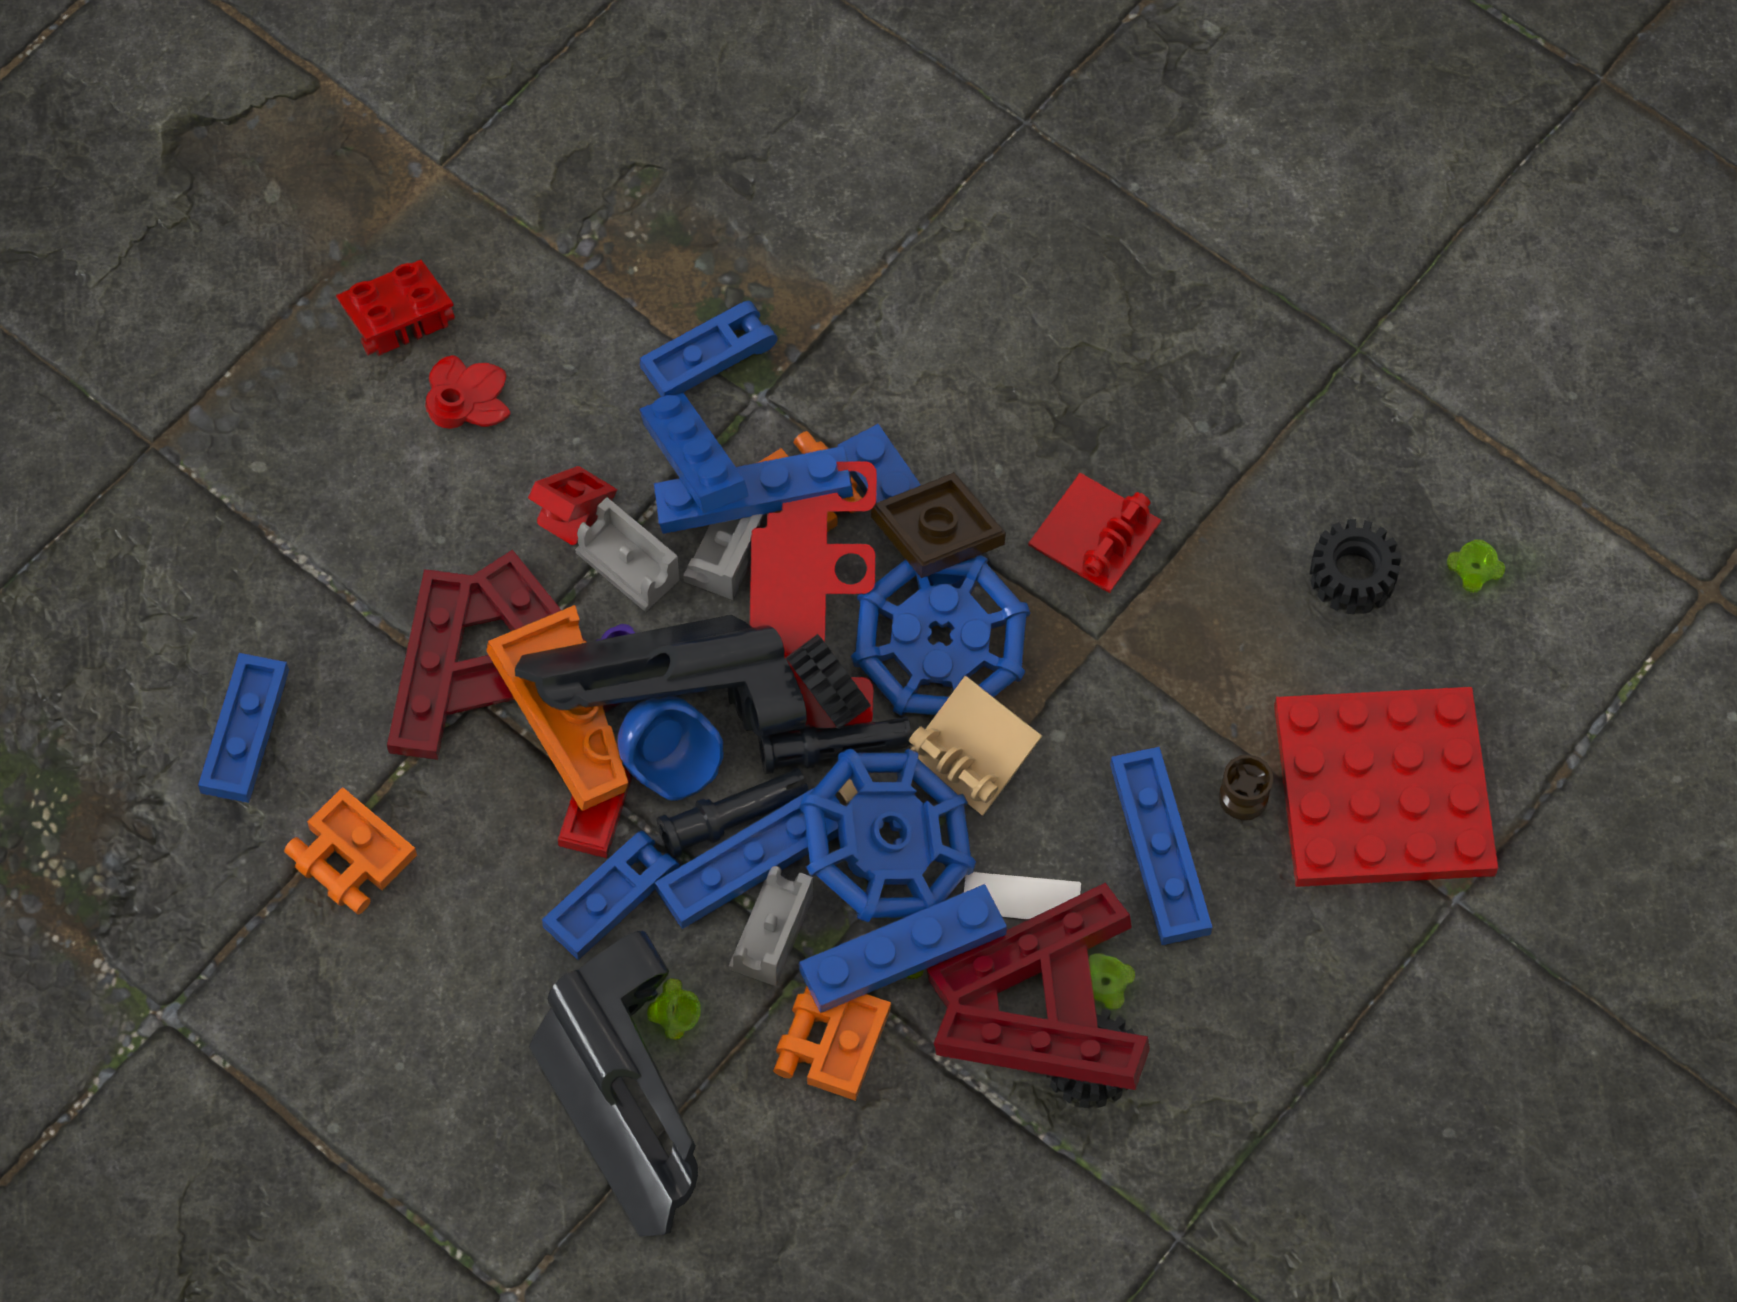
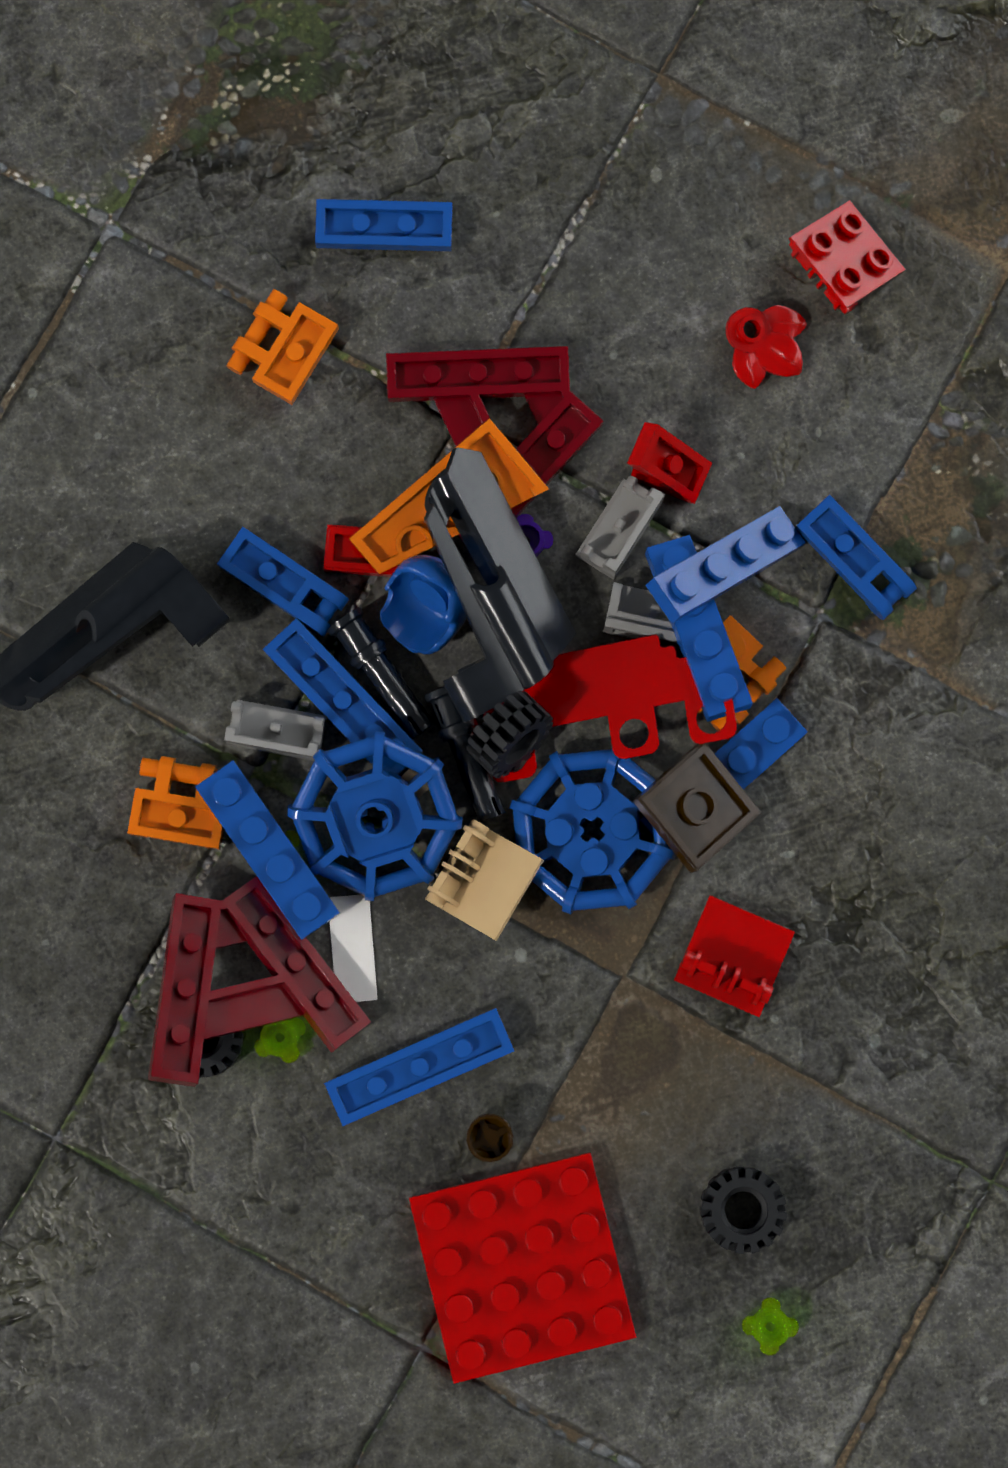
camera: 80 degrees right, 20 degrees up
(685, 1013) = (182, 661): clear neon green plate -> none

